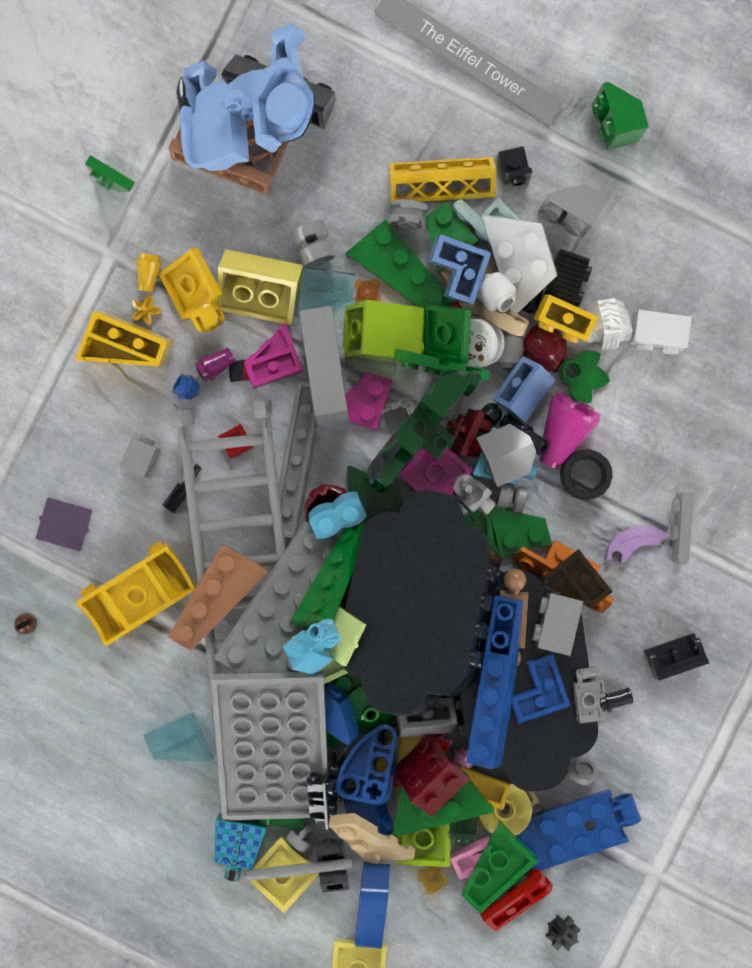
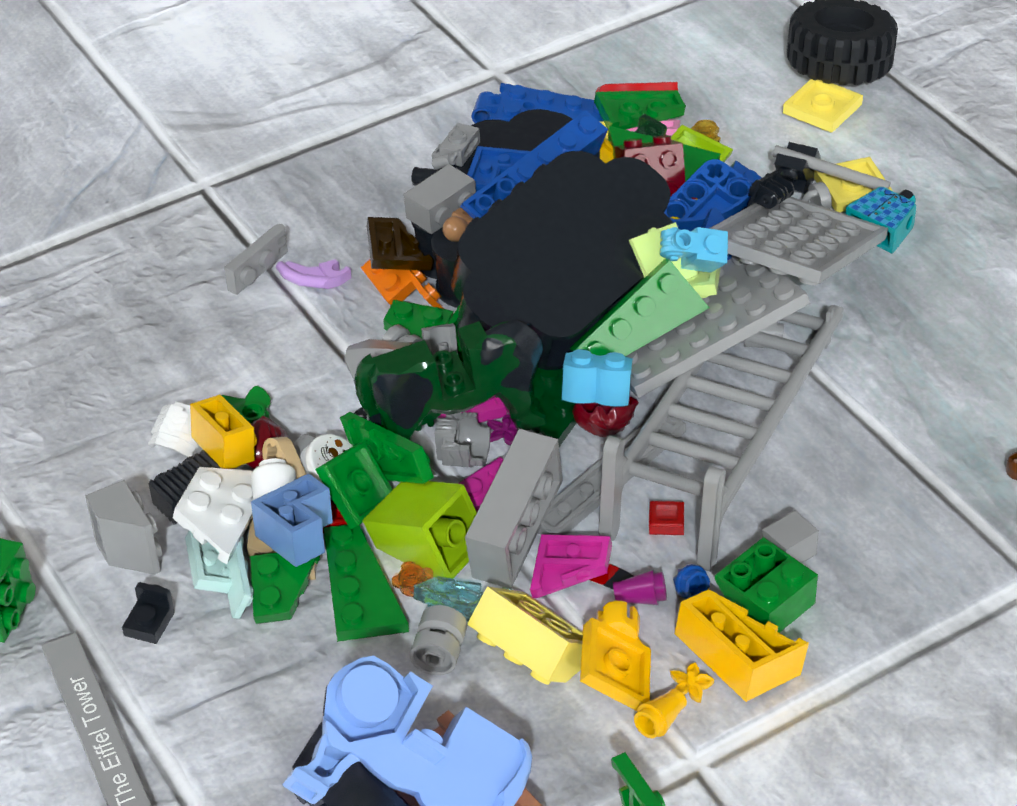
camera: 145 degrees left, 45 degrees down
(64, 524) = (921, 533): clear purple piece -> none
(130, 403) = (769, 584): none -> green slope
(136, 593) = (868, 422): yellow piece -> none
(178, 494) = (762, 499): black axle -> none
(179, 741) = (900, 314): clear light blue wing -> none
(219, 591) = (770, 373): nougat wing -> none
(366, 841) = (752, 158): tan wing -> none
(372, 905) = (774, 124): blue beam -> none
(408, 214) = (307, 615): light grey wheel -> none
(447, 171) = (237, 642): yellow fence -> none
(524, 389) = (315, 412): medium blue brick -> none
(540, 444) = (344, 378): black pin -> none
(562, 932) = (617, 53): pearl dark grey gear -> none
(566, 428) = (298, 366): dark pink cone -> none
(606, 473) = (313, 317): black tyre -> none
(660, 331) = (131, 404): white brick -> none
(676, 656) = (348, 180): black hinge -> none

